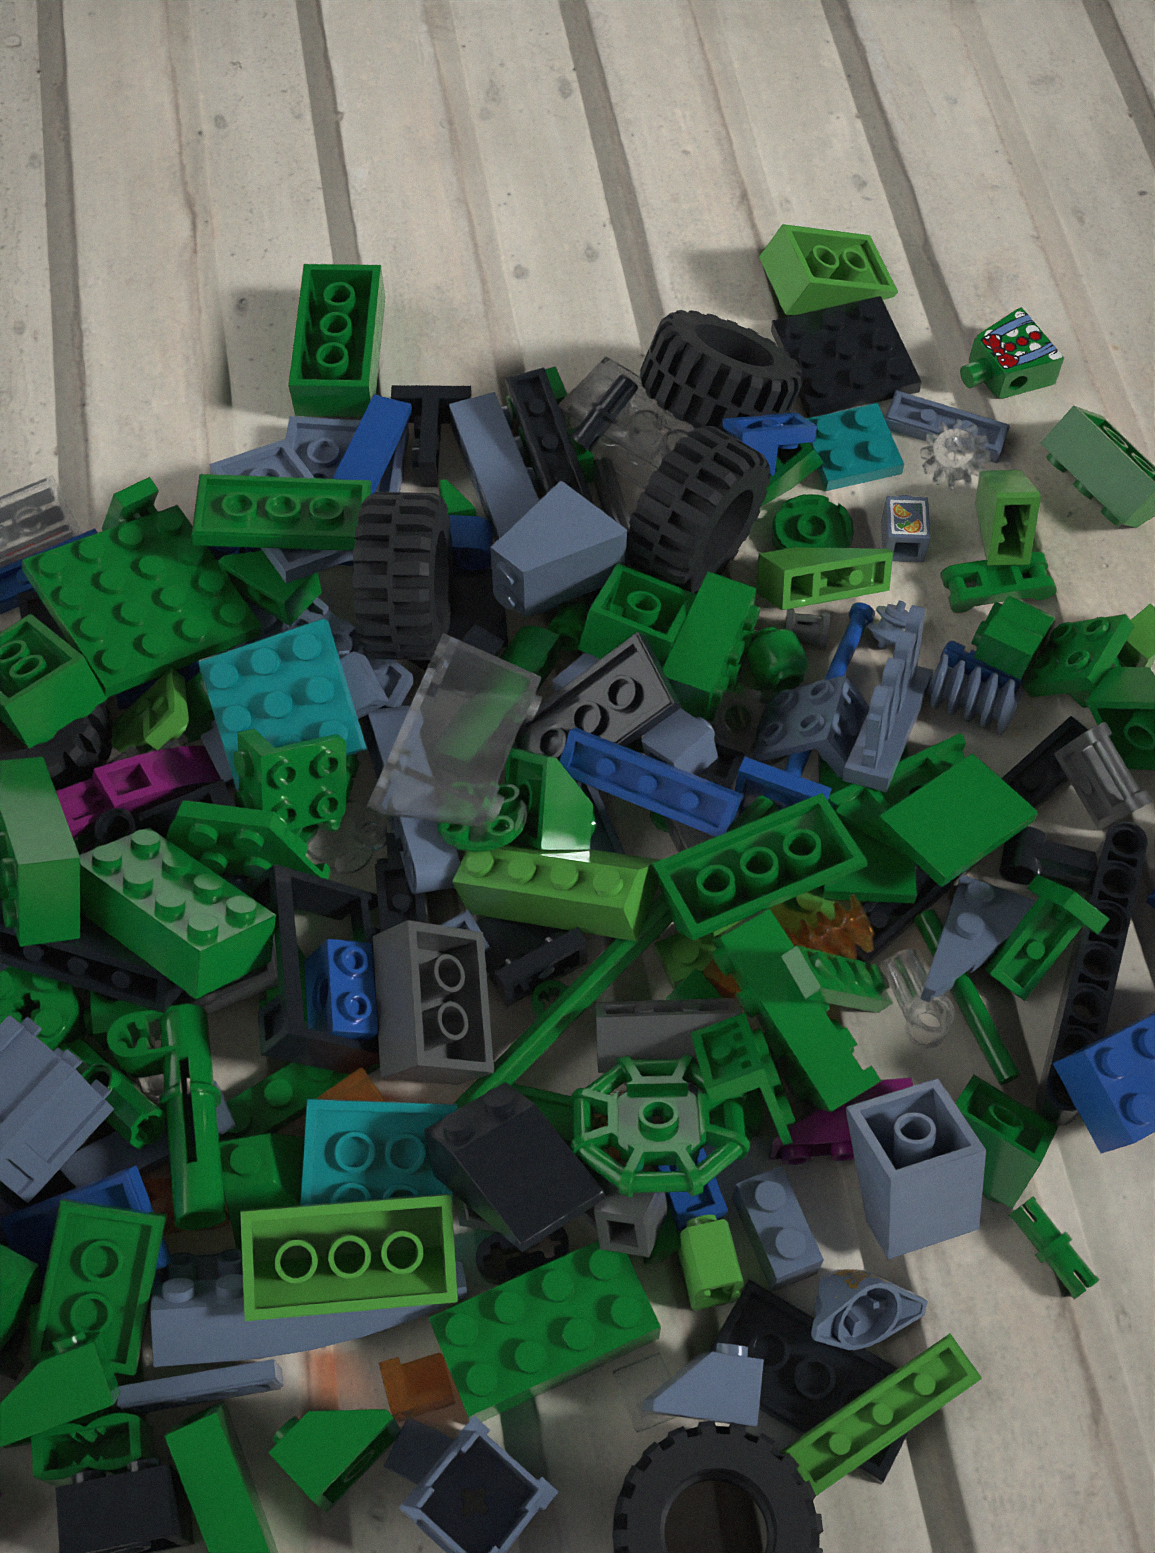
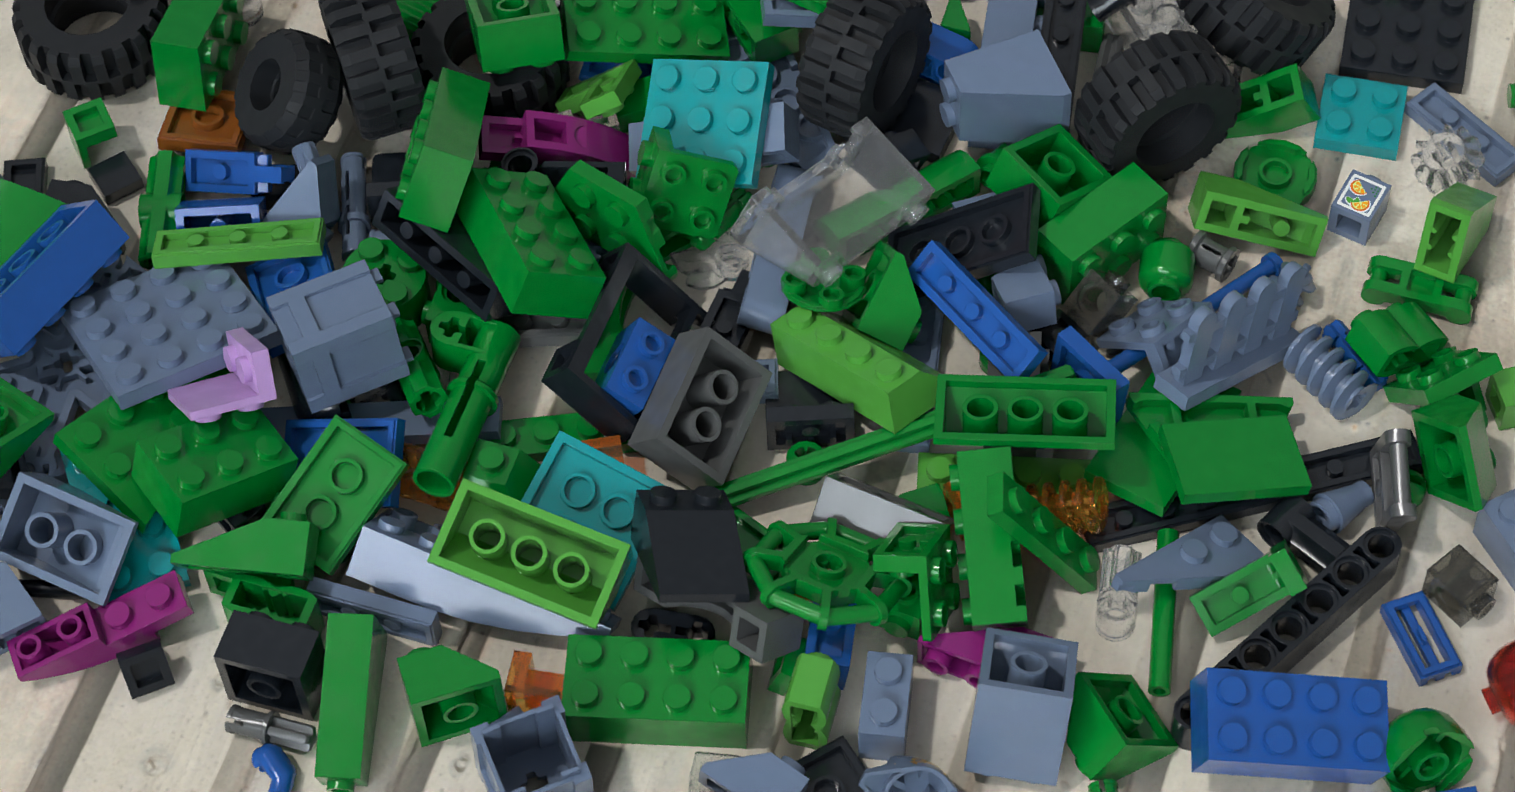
camera: 30 degrees right, 5 degrees down
(770, 432) = (1252, 63): blue slope -> none
(1060, 815) = (1342, 505): none -> sand blue cone

